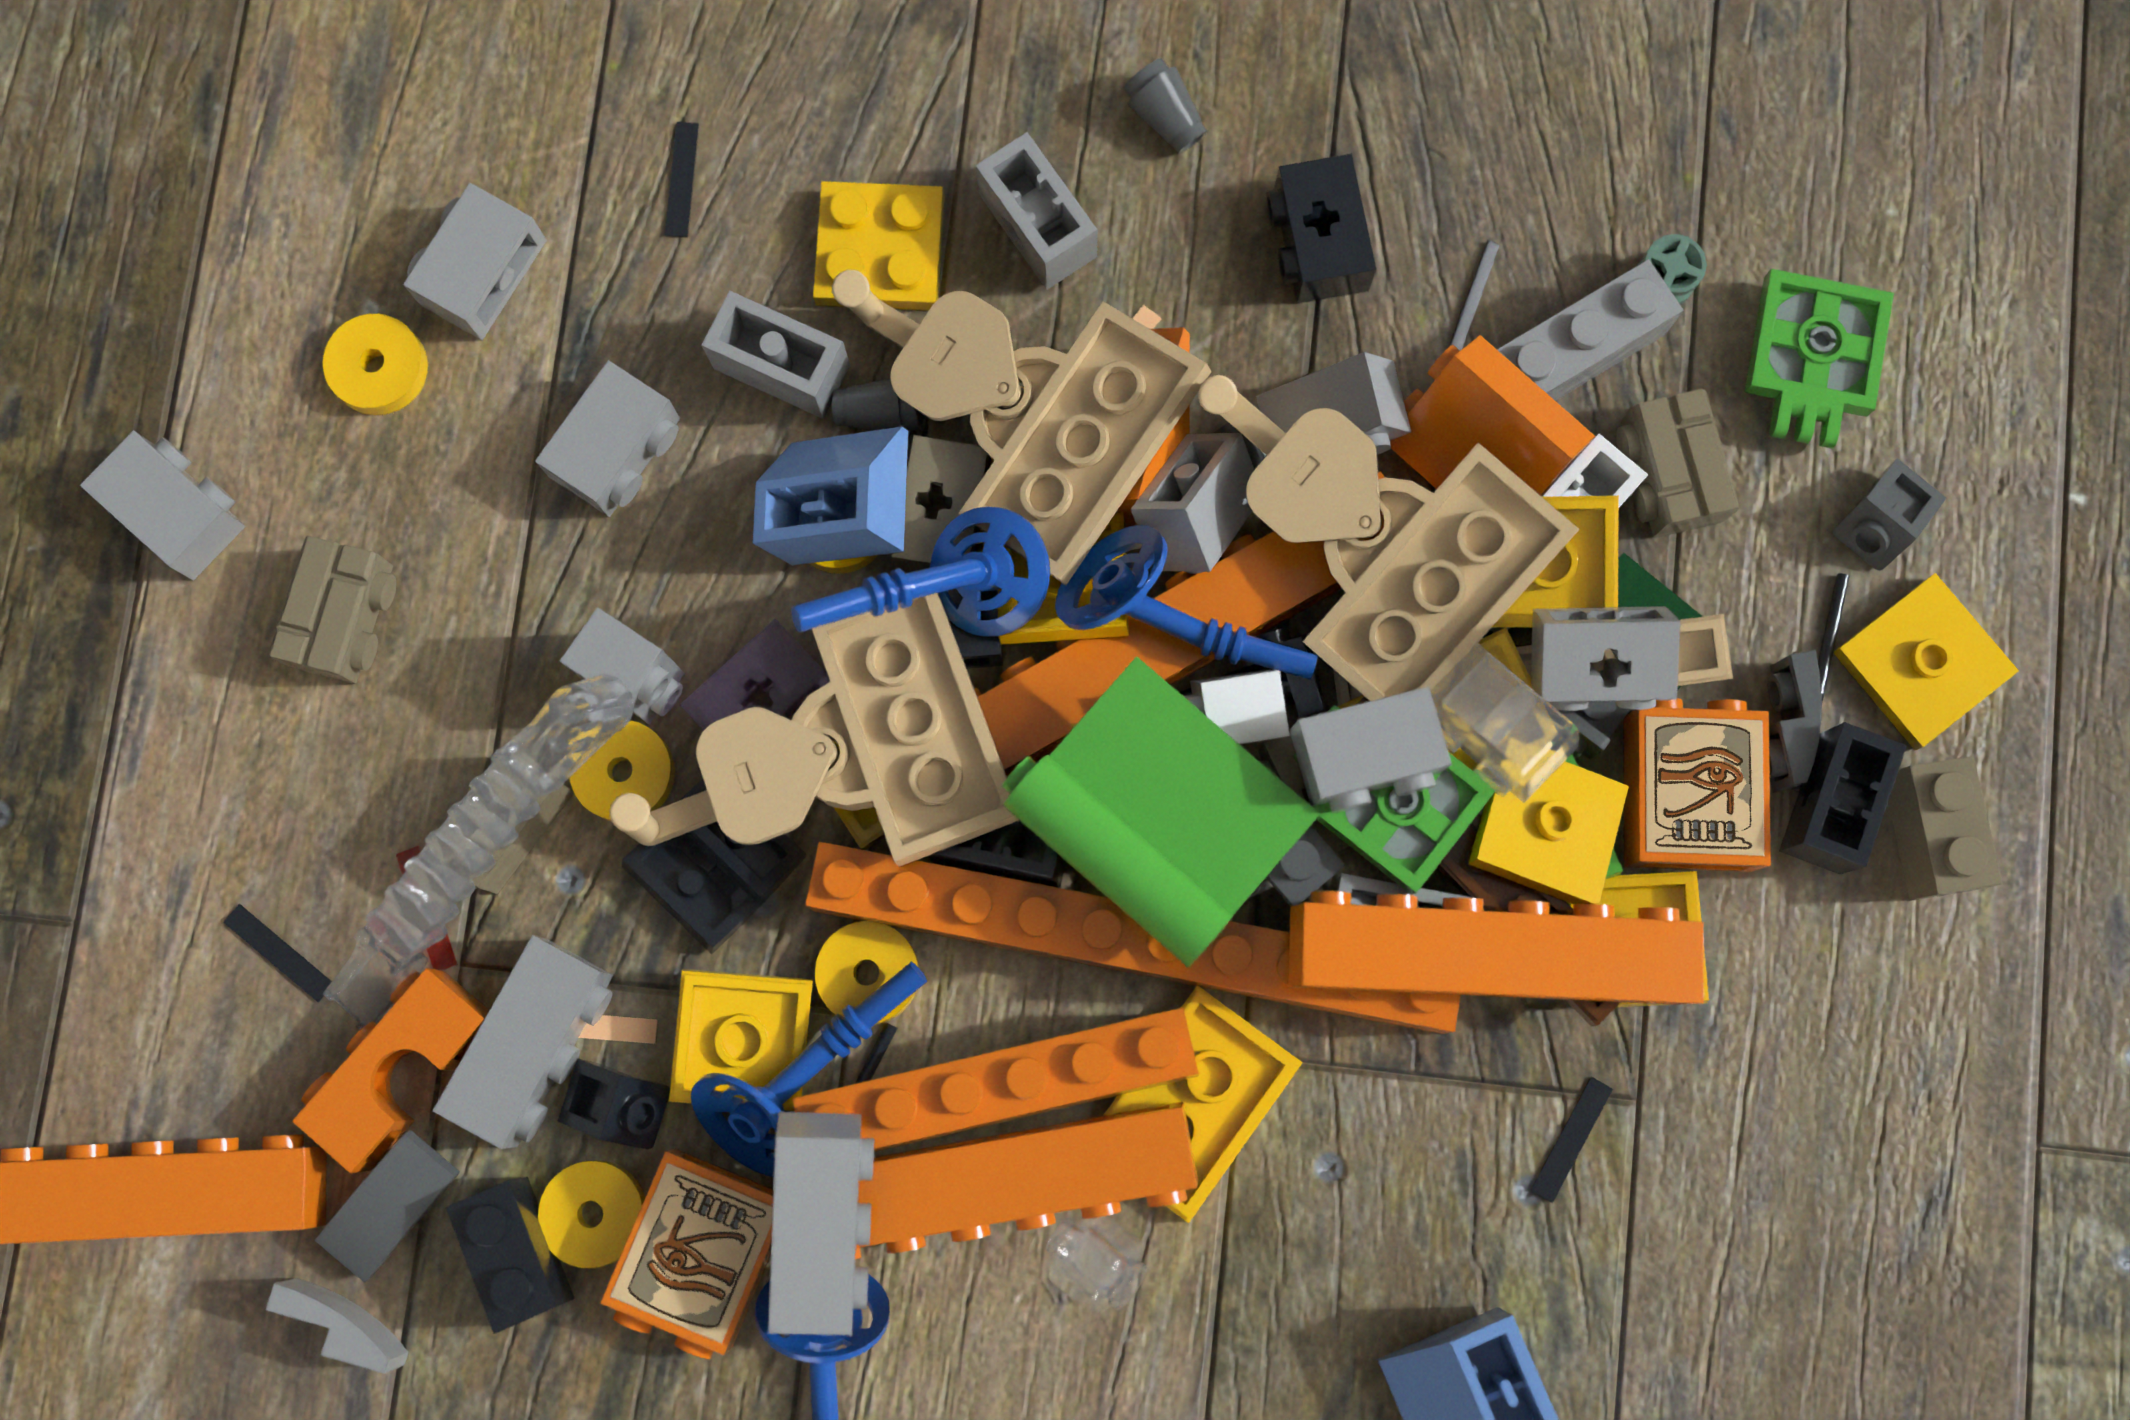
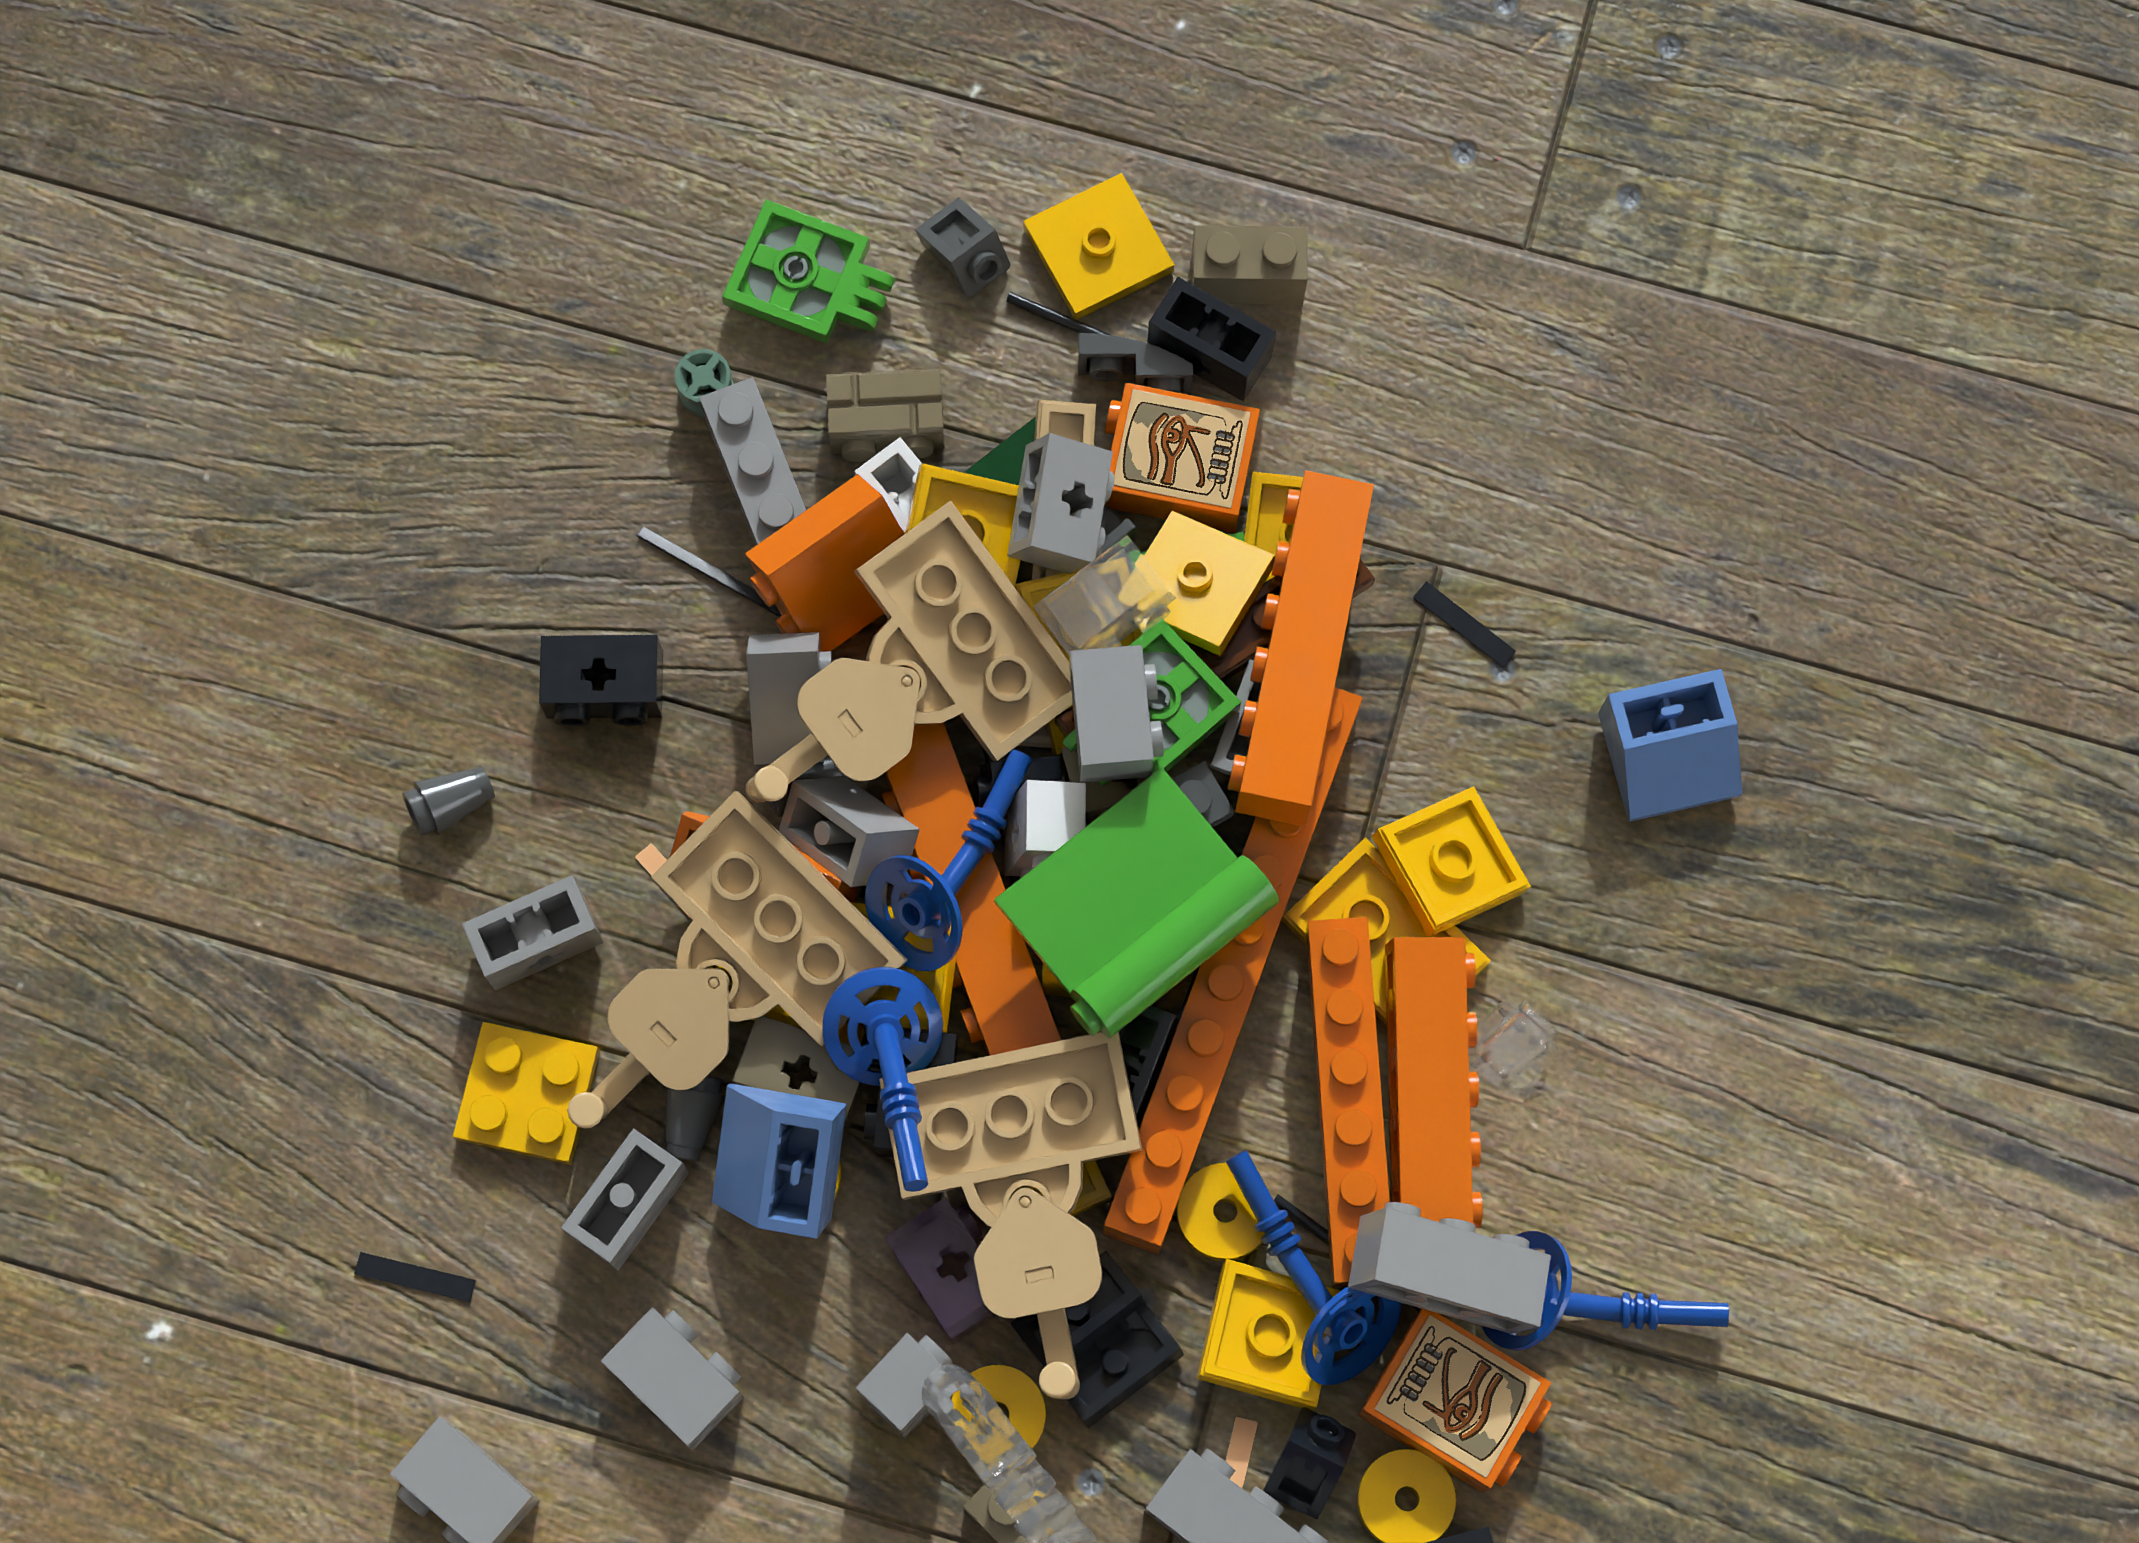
camera: 85 degrees left, 5 degrees down
(1292, 1162) = (1450, 861): none -> yellow plate

